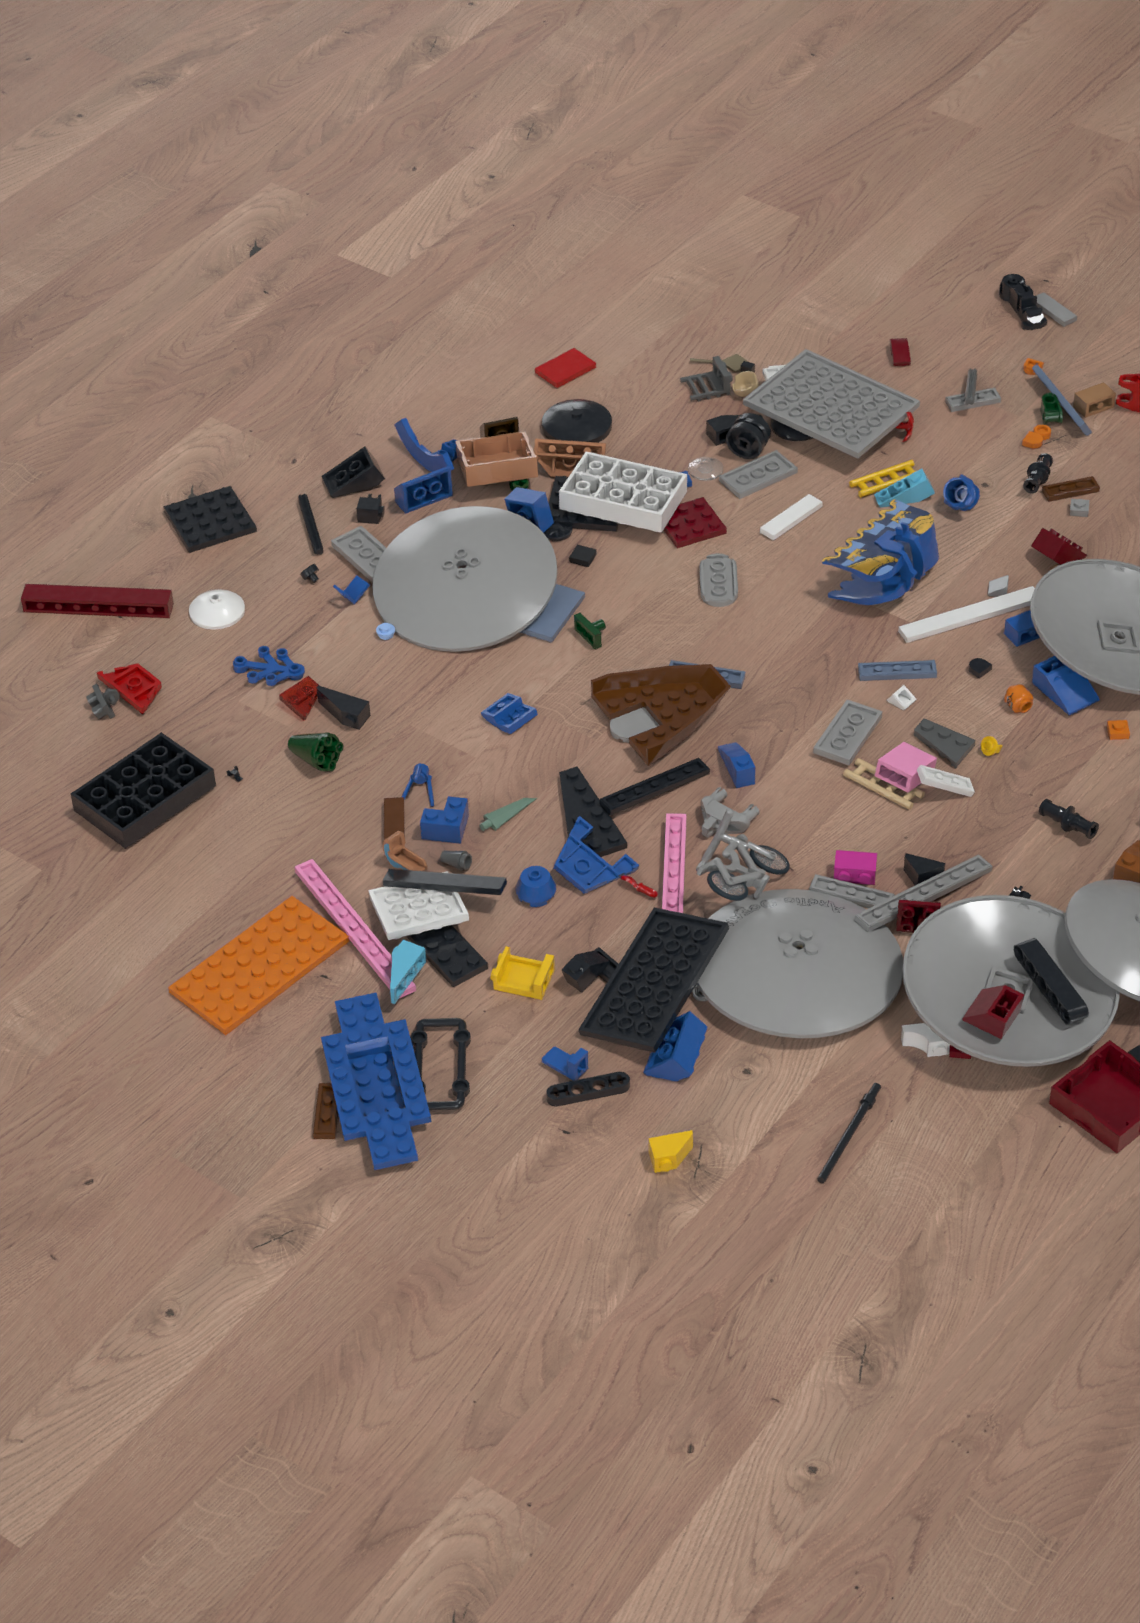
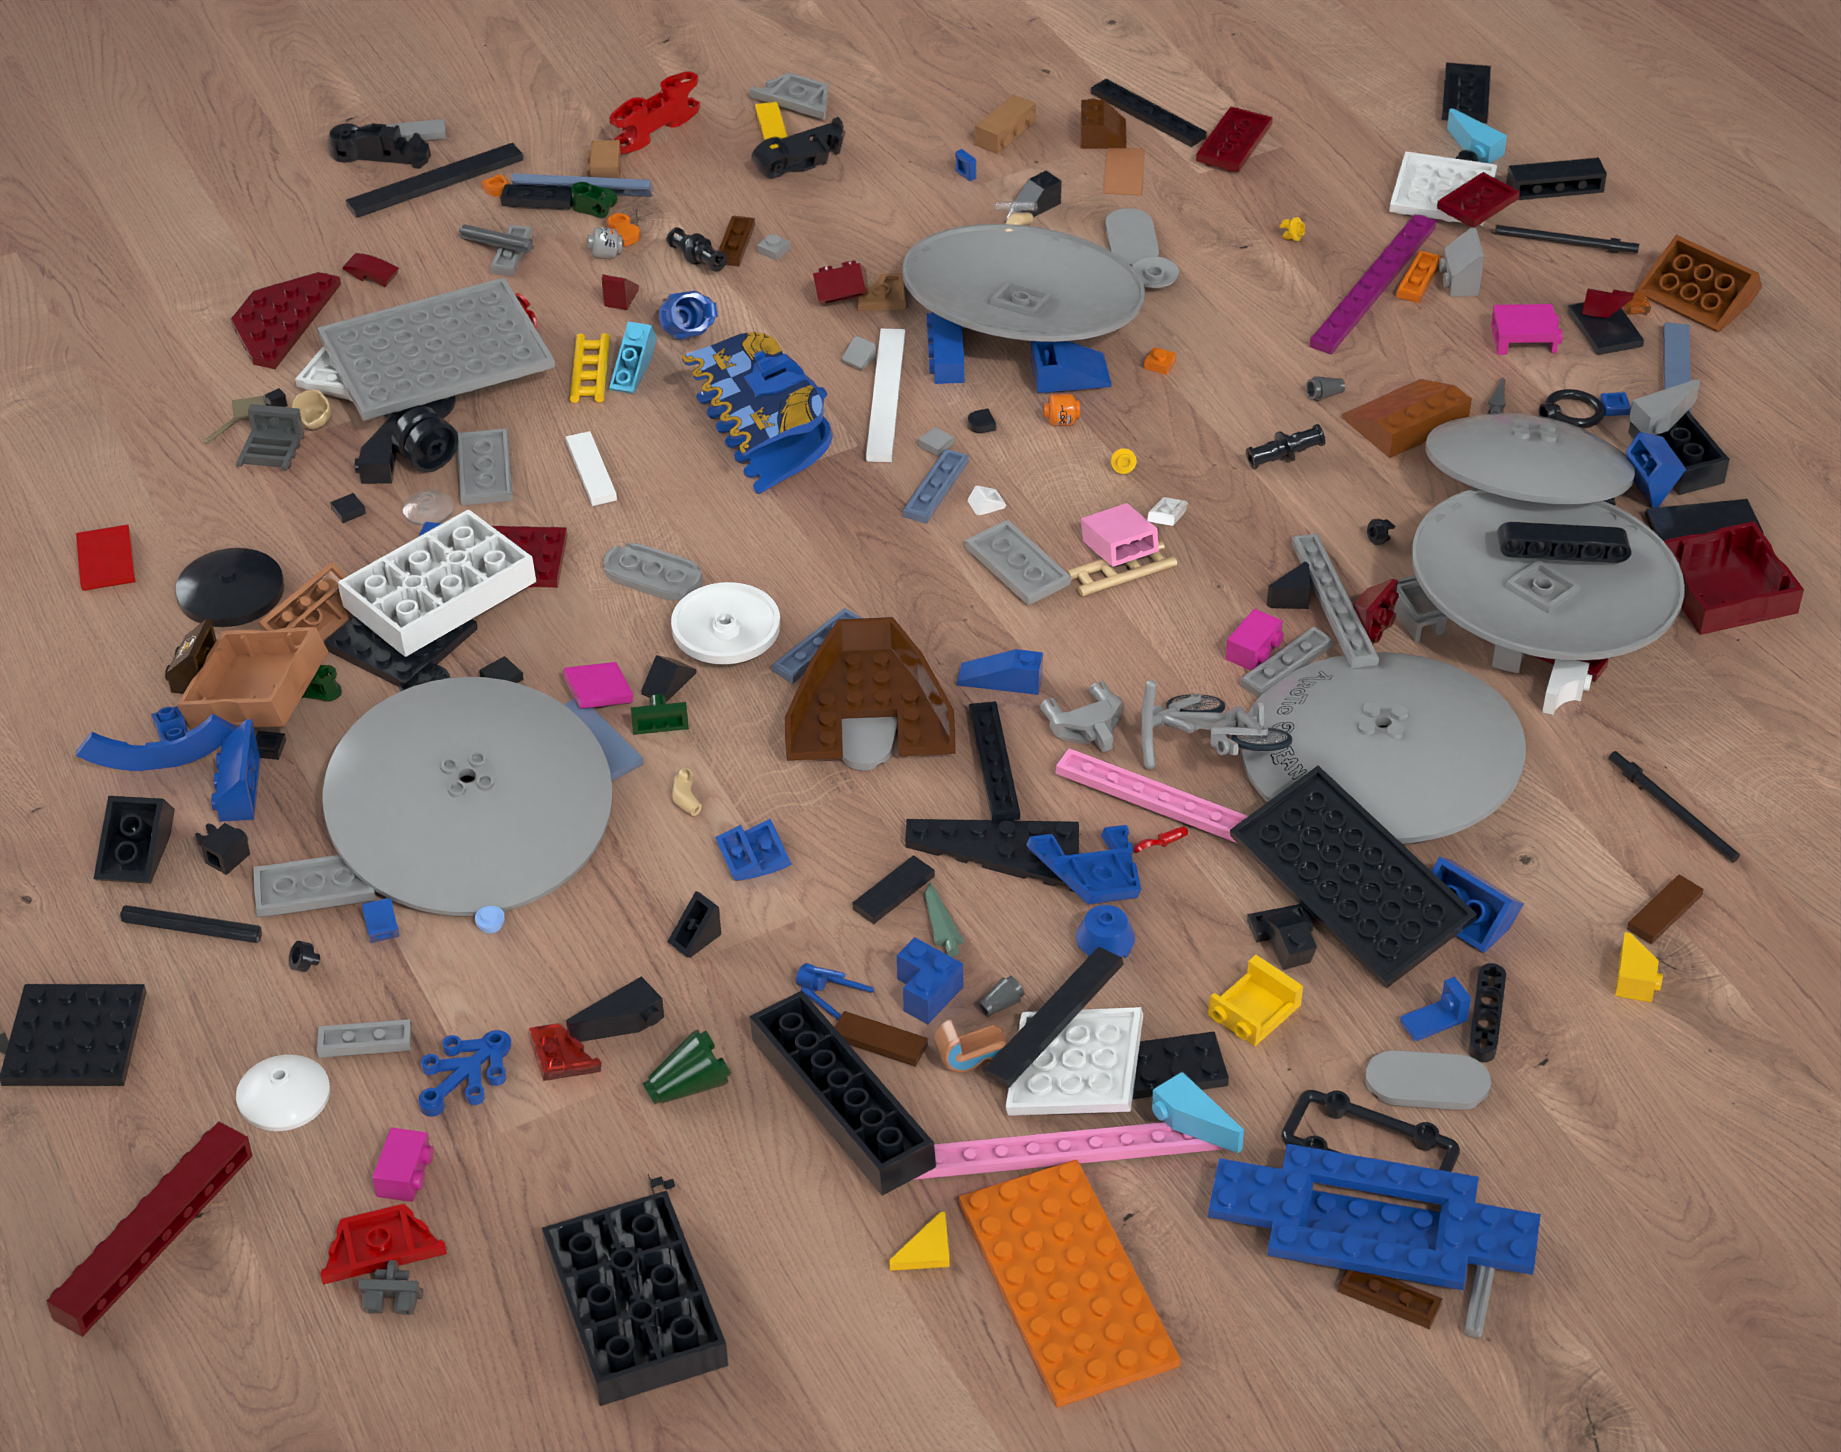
camera: 65 degrees left, 0 degrees up
(187, 670) = (402, 1164): none -> dark pink brick
(250, 898) = (926, 1249): none -> yellow tile
(267, 620) = (364, 1038): none -> light grey plate
(330, 813) = (843, 1093): none -> black brick
(343, 1153) = (1479, 1301): none -> light grey axle
(430, 712) = (697, 926): none -> black slope
(462, 493) = (270, 744): none -> black tile
(511, 1077) = (1427, 1080): none -> light grey tile
(517, 783) = (893, 889): none -> black tile
(530, 505) = (387, 674): blue brick -> none
(536, 665) = (682, 792): none -> tan arm
(598, 595) = (598, 685): none -> dark pink tile
(628, 621) = (666, 677): none -> black slope
(677, 437) = (348, 508): none -> black tile
(685, 623) = (725, 623): none -> white dish
(744, 1154) = (1665, 909): none -> reddish brown tile
(827, 336) = (279, 315): none -> dark red plate
(941, 654) = (936, 441): none -> light grey tile
(944, 740) = (1088, 491): dark grey wing -> none
(967, 458) = (618, 292): none -> dark red slope
(995, 1010) = (1596, 595): dark red slope -> none
(1010, 433) = (604, 243): none -> light grey head
(1015, 339) = (434, 180): none -> black tile
(1031, 384) = (536, 196): none -> black plate

